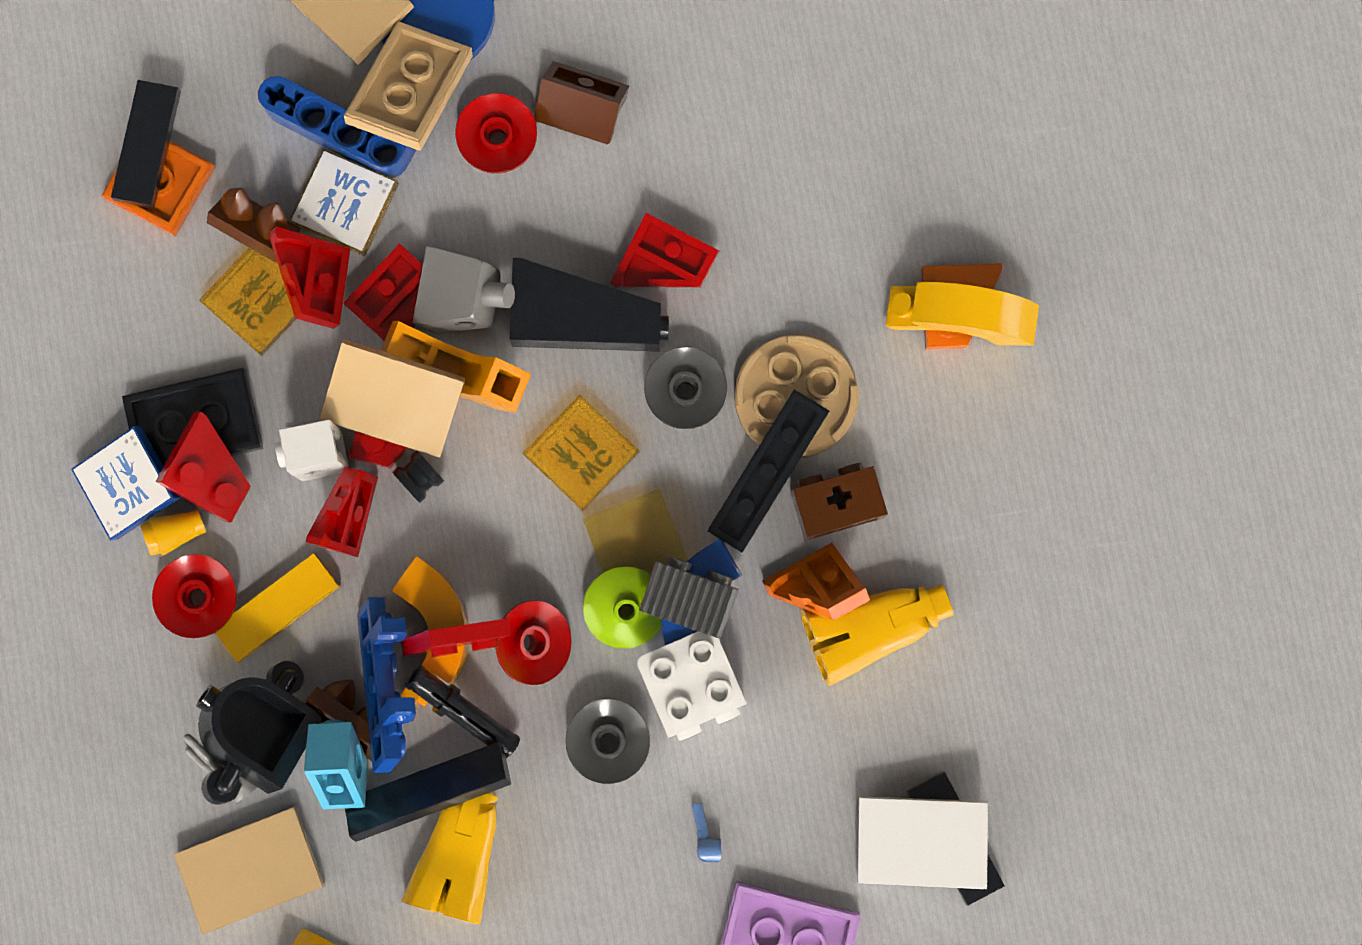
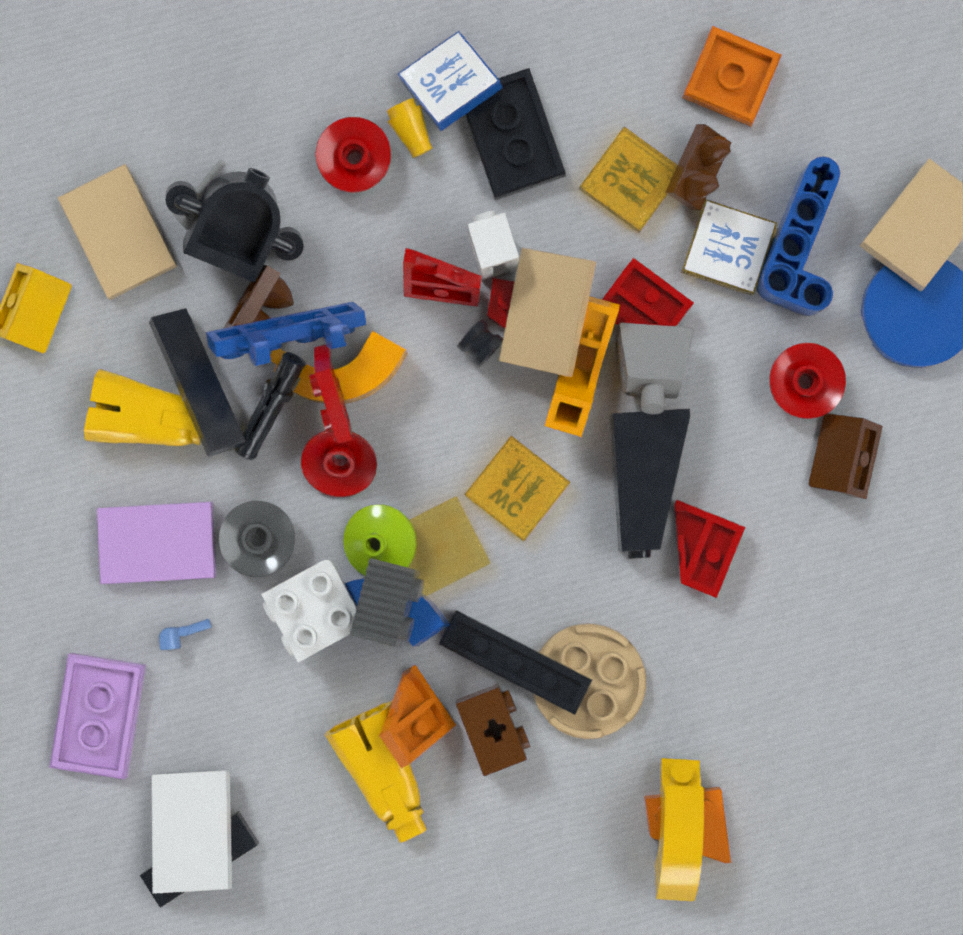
camera: 90 degrees right, 5 degrees up
(146, 144) = (764, 60): black tile -> none
(205, 471) = (466, 150): red wing -> none
(277, 607) = (351, 230): yellow tile -> none
(312, 275) = (656, 226): red wing -> none
(336, 765) = (211, 298): medium azure brick -> none
(408, 85) = (843, 295): tan tile -> none
(601, 856) = (156, 542): none -> lavender tile
(689, 367) = (605, 579): dark grey dish -> none

